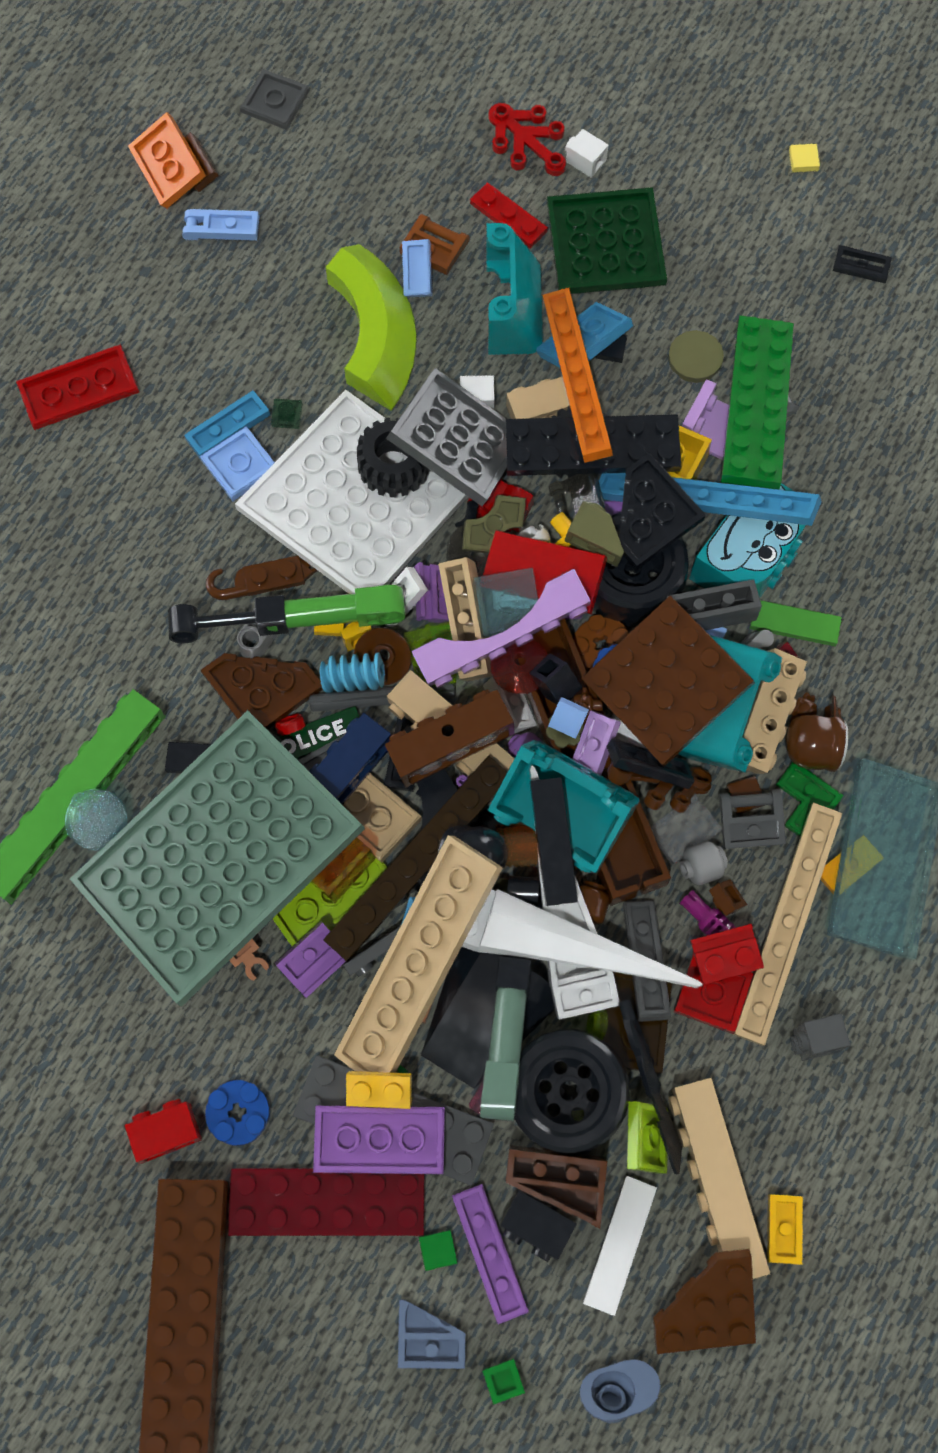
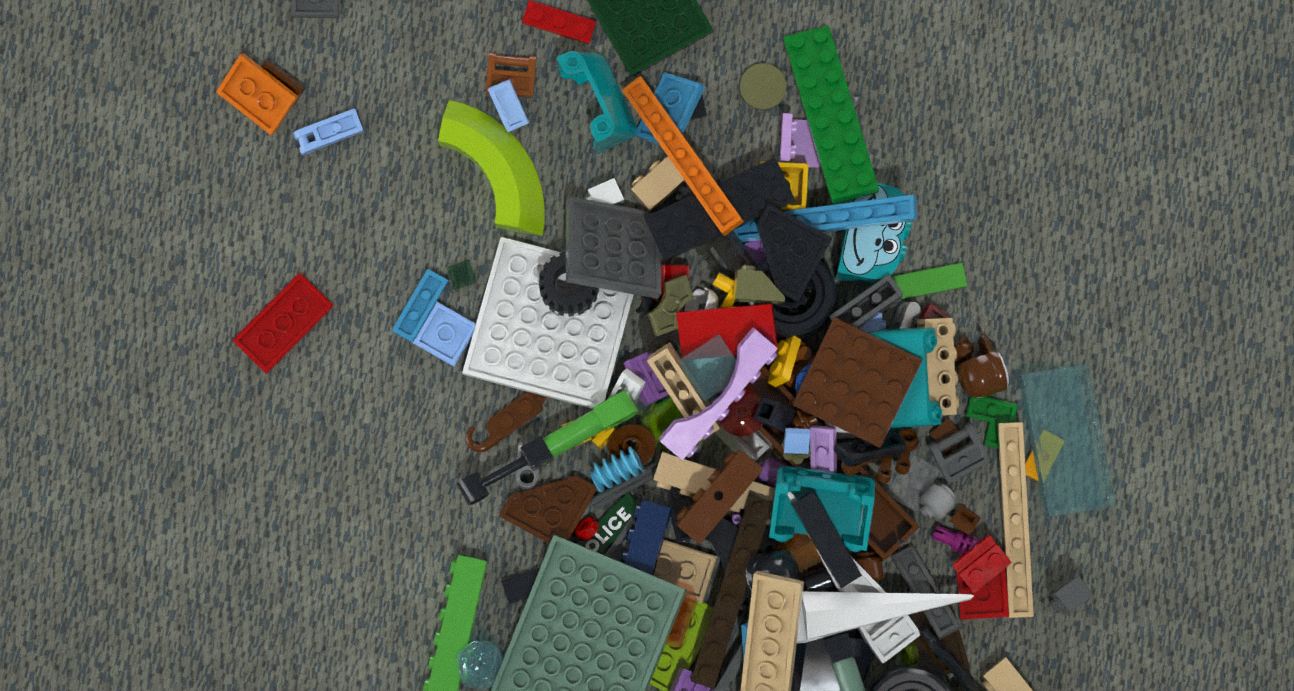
camera: 25 degrees left, 10 degrees up
(589, 632) = (784, 361): none -> yellow plate

